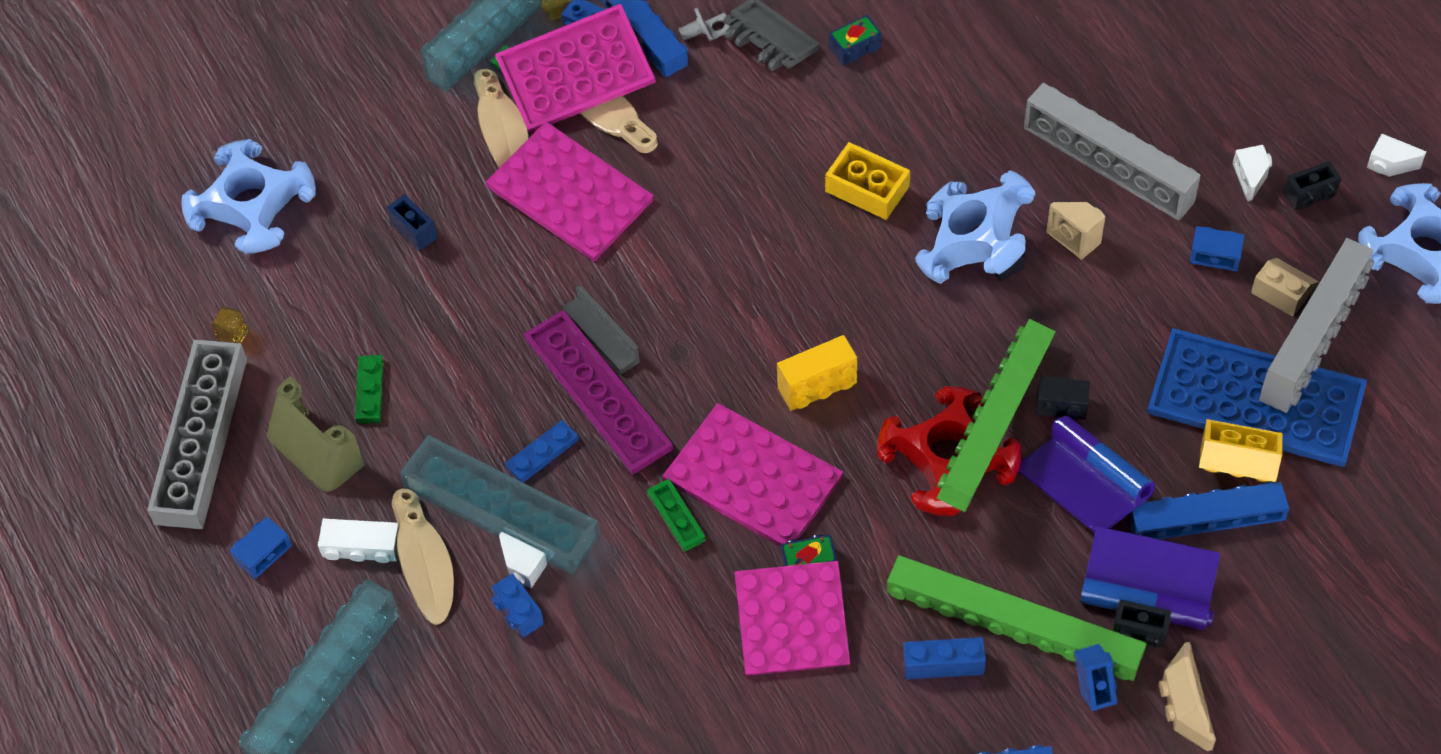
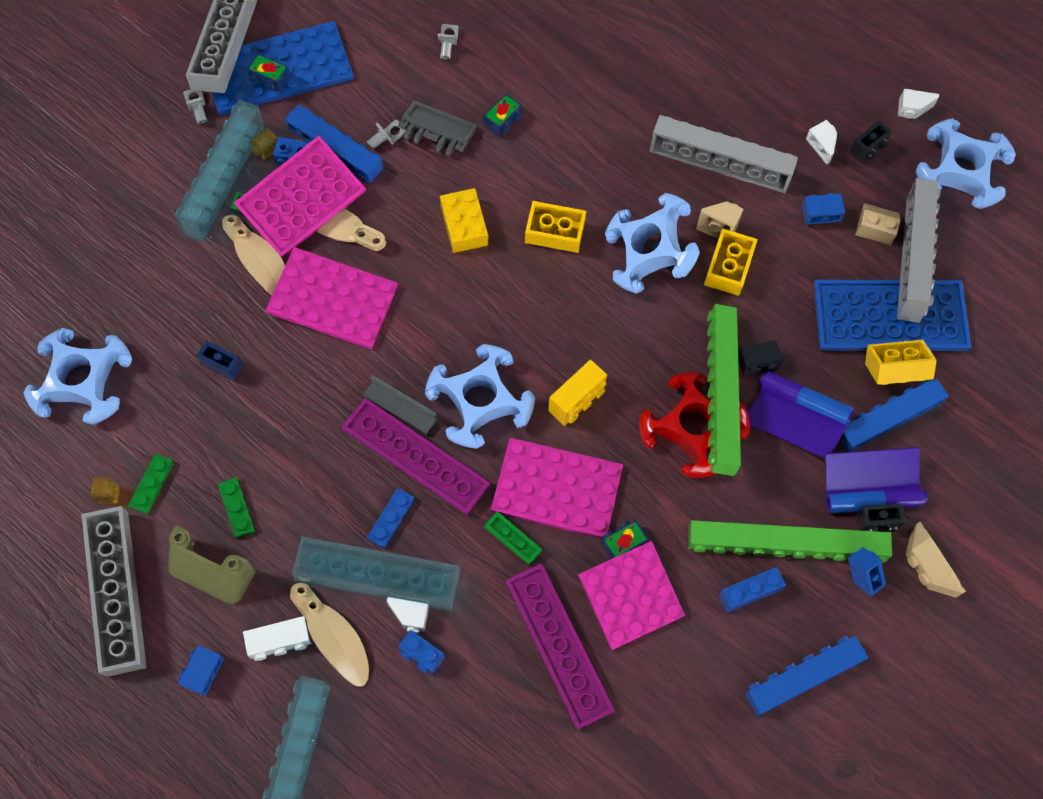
camera: 25 degrees left, 10 degrees up
(284, 336) = (151, 484): none -> green plate
(683, 651) = (559, 646): none -> magenta plate
(708, 322) = (486, 376): none -> light blue piece
(759, 145) = (464, 220): none -> yellow brick
(1070, 278) = (730, 262): none -> yellow brick

